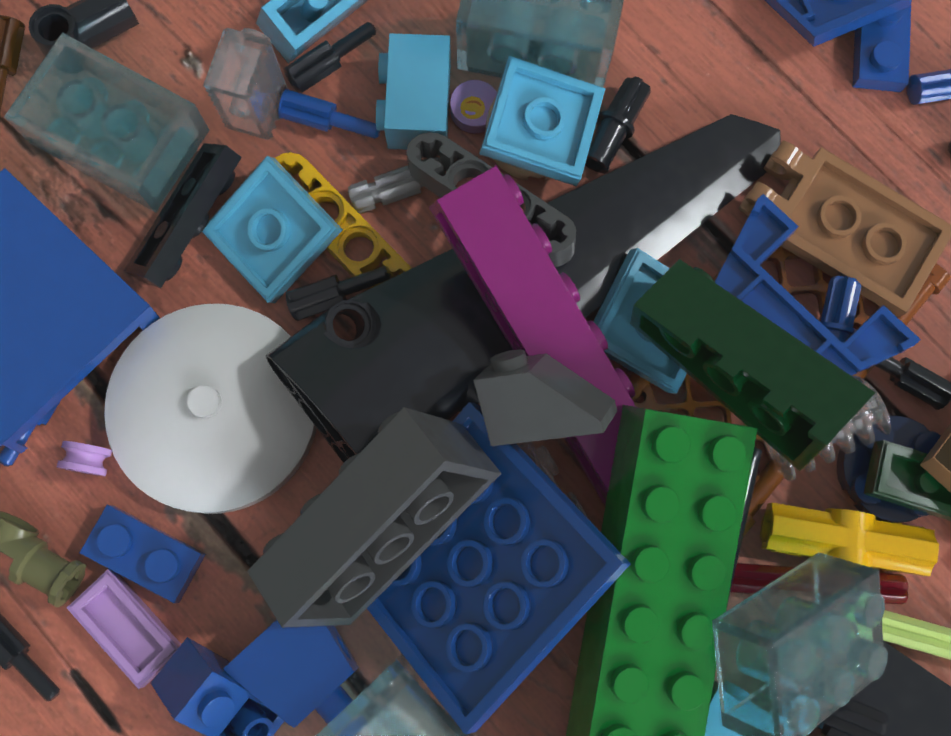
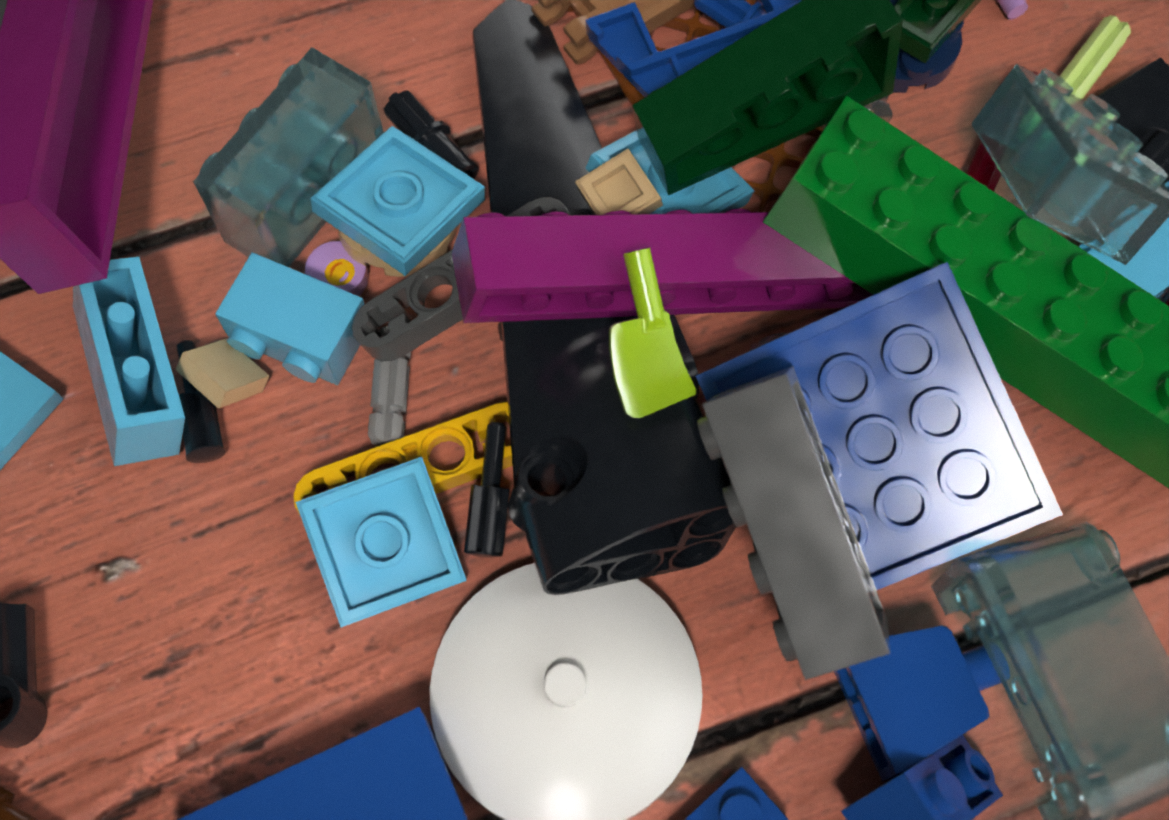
camera: 65 degrees left, 10 degrees down
(108, 122) = (151, 682): clear light blue brick -> none
(183, 215) = (313, 639): black plate -> none
(246, 82) = (194, 489): clear brick -> none
(321, 114) = (264, 437): blue axle -> none
(354, 62) = (222, 373): none -> tan tile
(460, 350) = (644, 348): none -> lime piece
(538, 400) = (737, 285): dark grey slope -> none
(609, 282) = (619, 187): none -> tan tile
(850, 537) = (967, 88): yellow piece -> none

